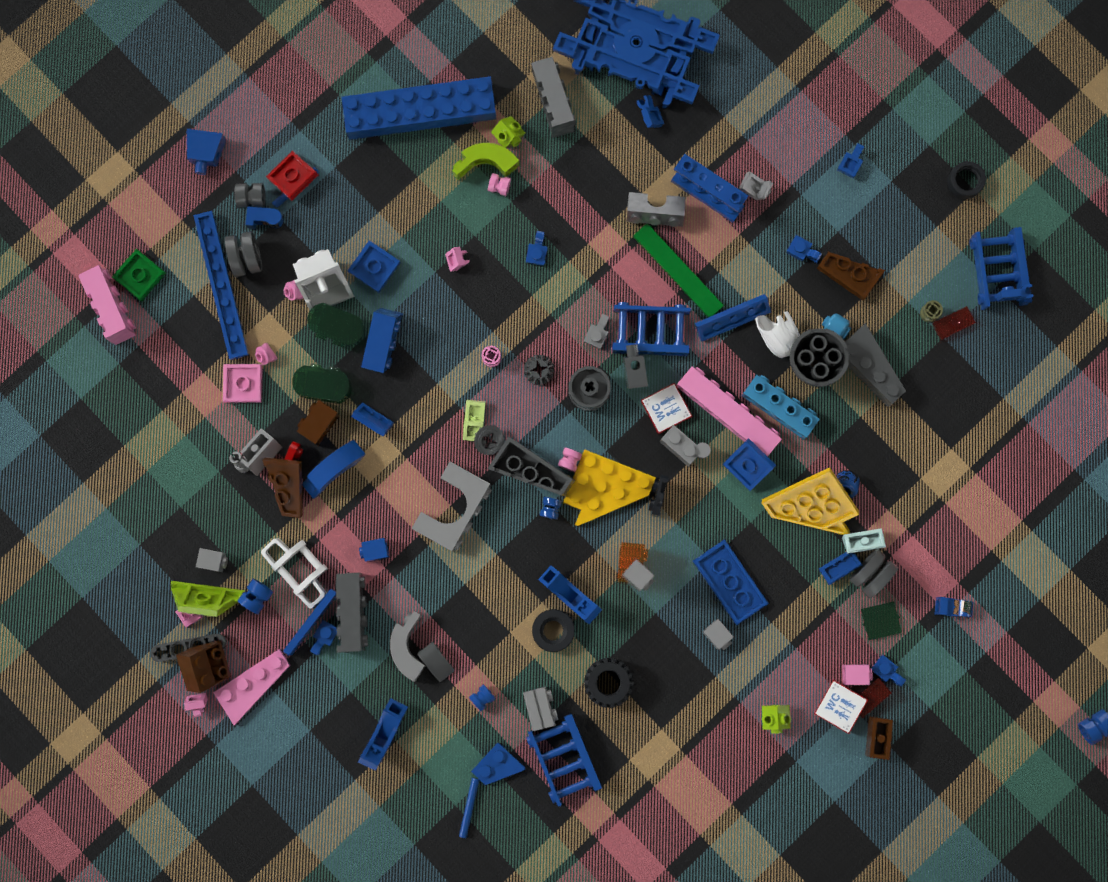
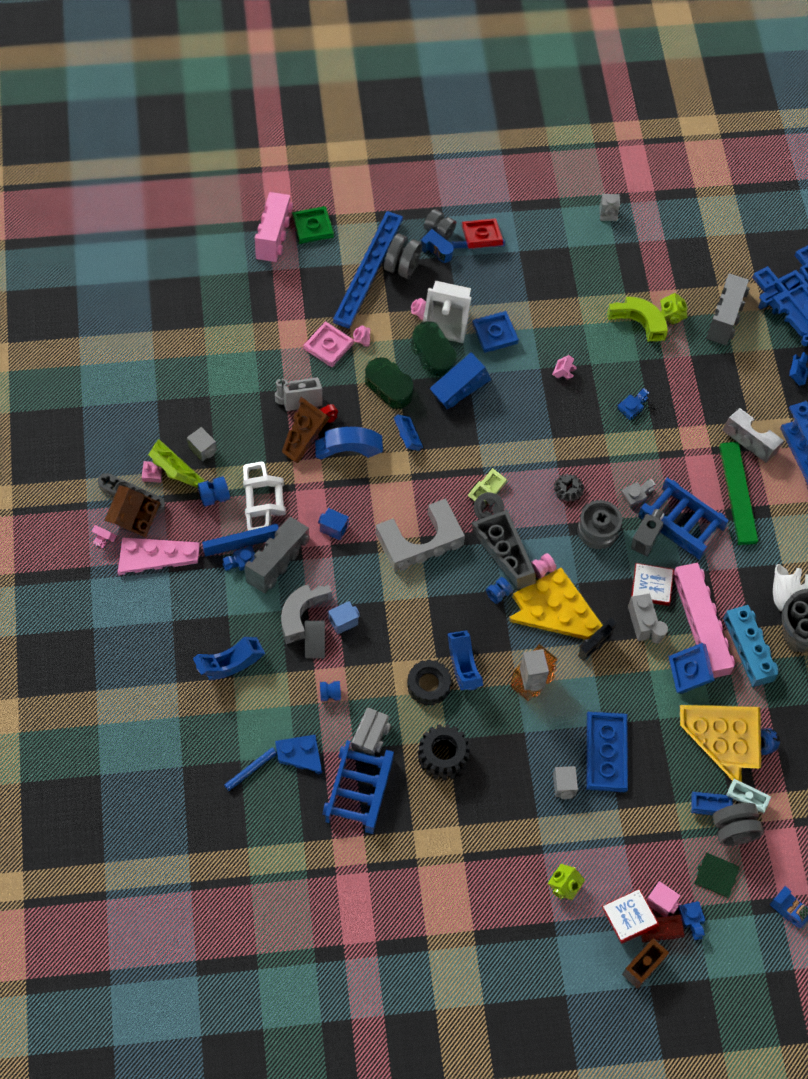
camera: 30 degrees right, 20 degrees down
(204, 149) = (431, 175): blue torso -> none
(317, 422) = (364, 406): reddish brown brick -> none
(382, 67) = (609, 207): none -> light grey brick
(419, 108) = (616, 250): blue brick -> none
(445, 626) = (343, 617): none -> medium blue brick
(491, 356) = (538, 451): bright pink wheel -> none
(499, 184) = (639, 340): bright pink wheel -> none
(732, 317) = (758, 553): blue plate -> none

